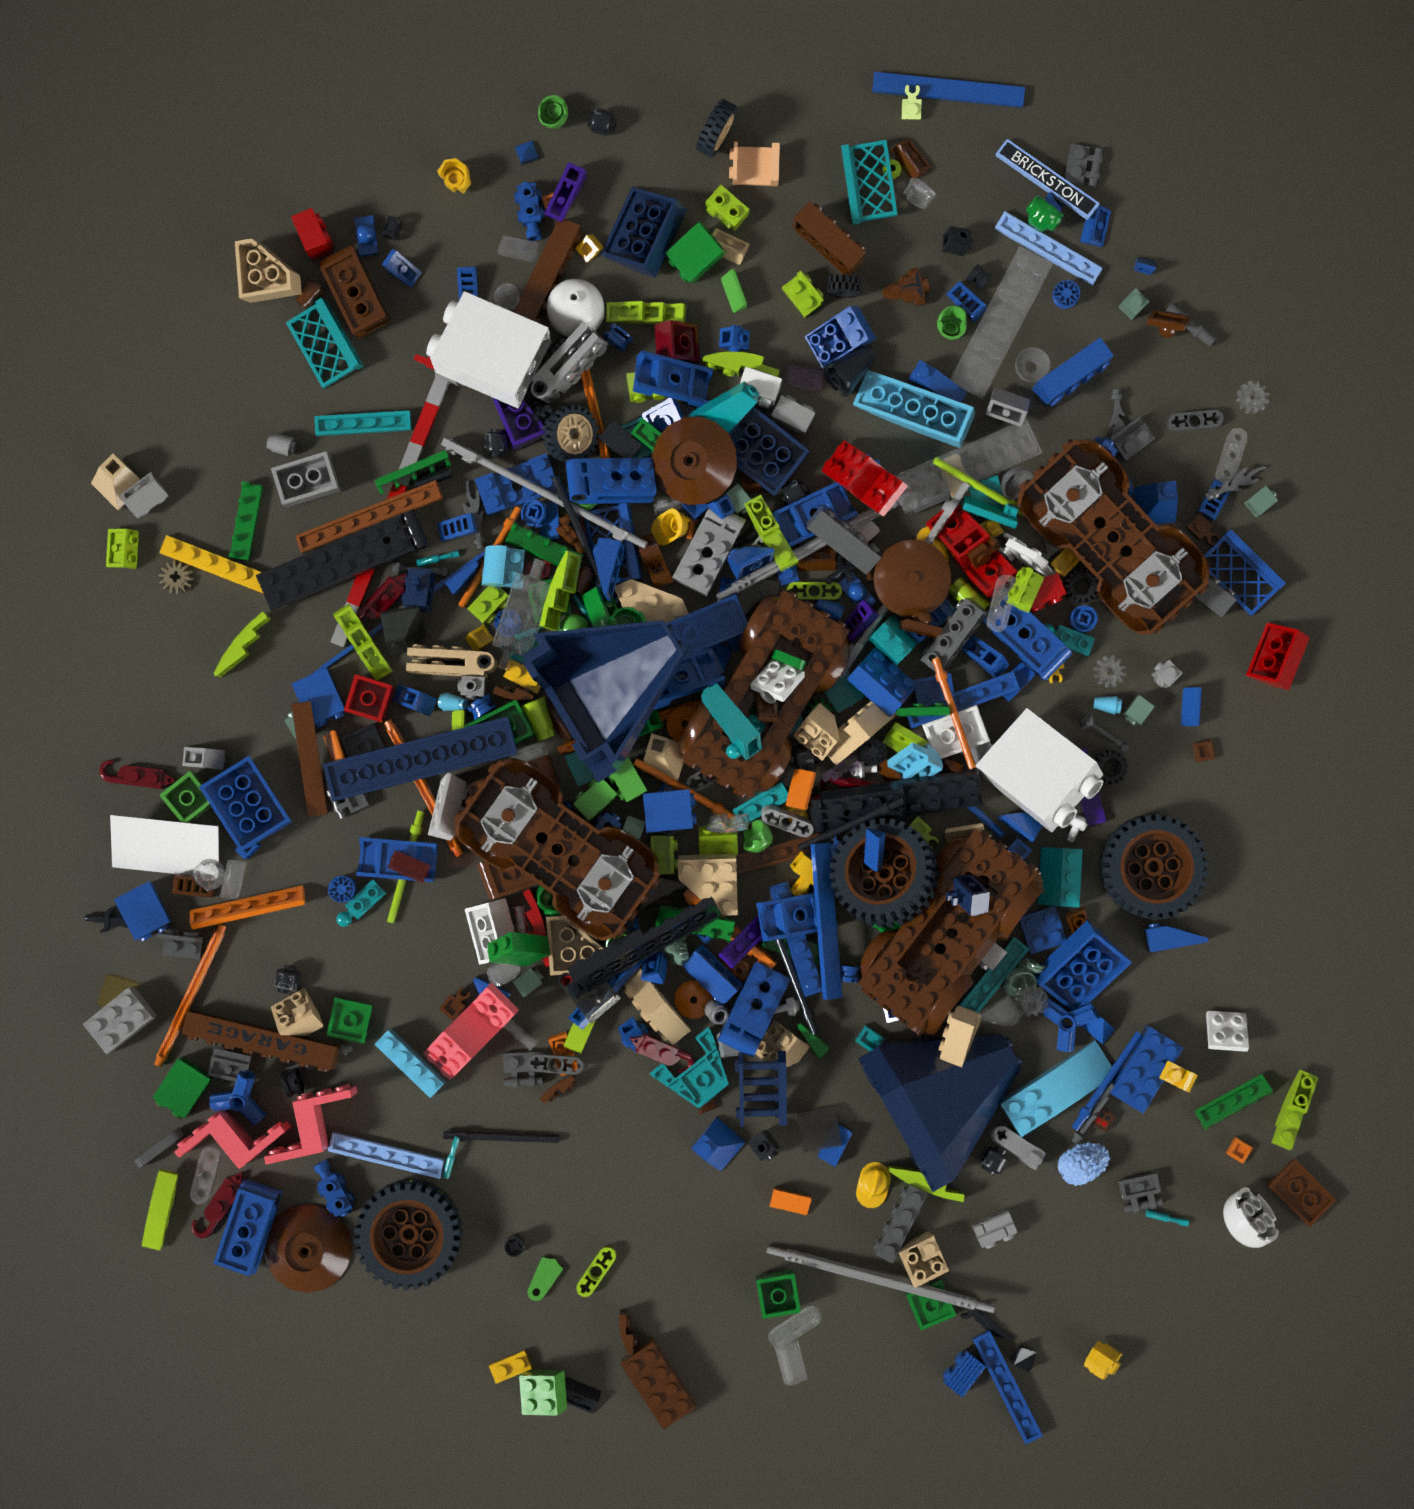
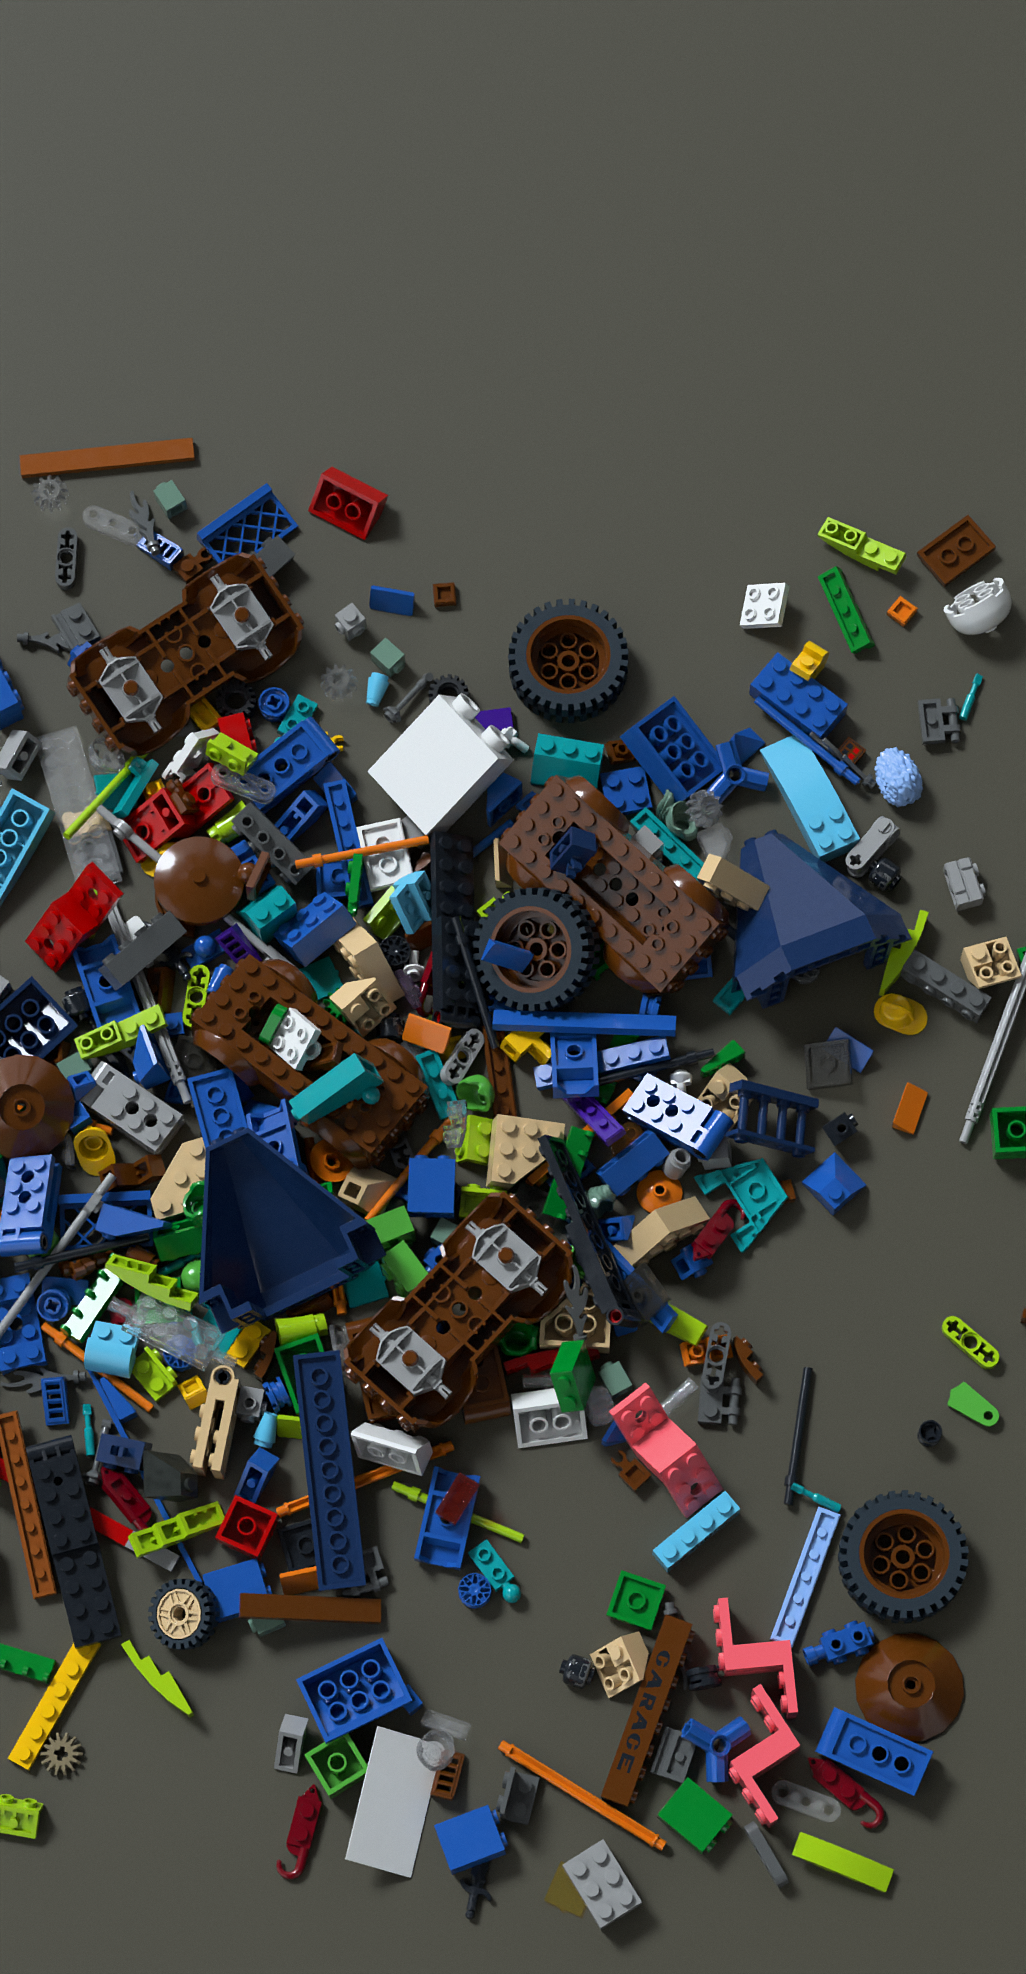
camera: 80 degrees left, 15 degrees down
(247, 907) = (482, 1710): orange plate -> none
(306, 658) = (168, 1609): none -> wheel
(576, 947) = (578, 1304): none -> dark grey piece
(1158, 501) = (150, 603): blue slope -> none
(1165, 937) = (650, 658): blue slope -> none
(1293, 441) = (107, 457): none -> dark orange tile

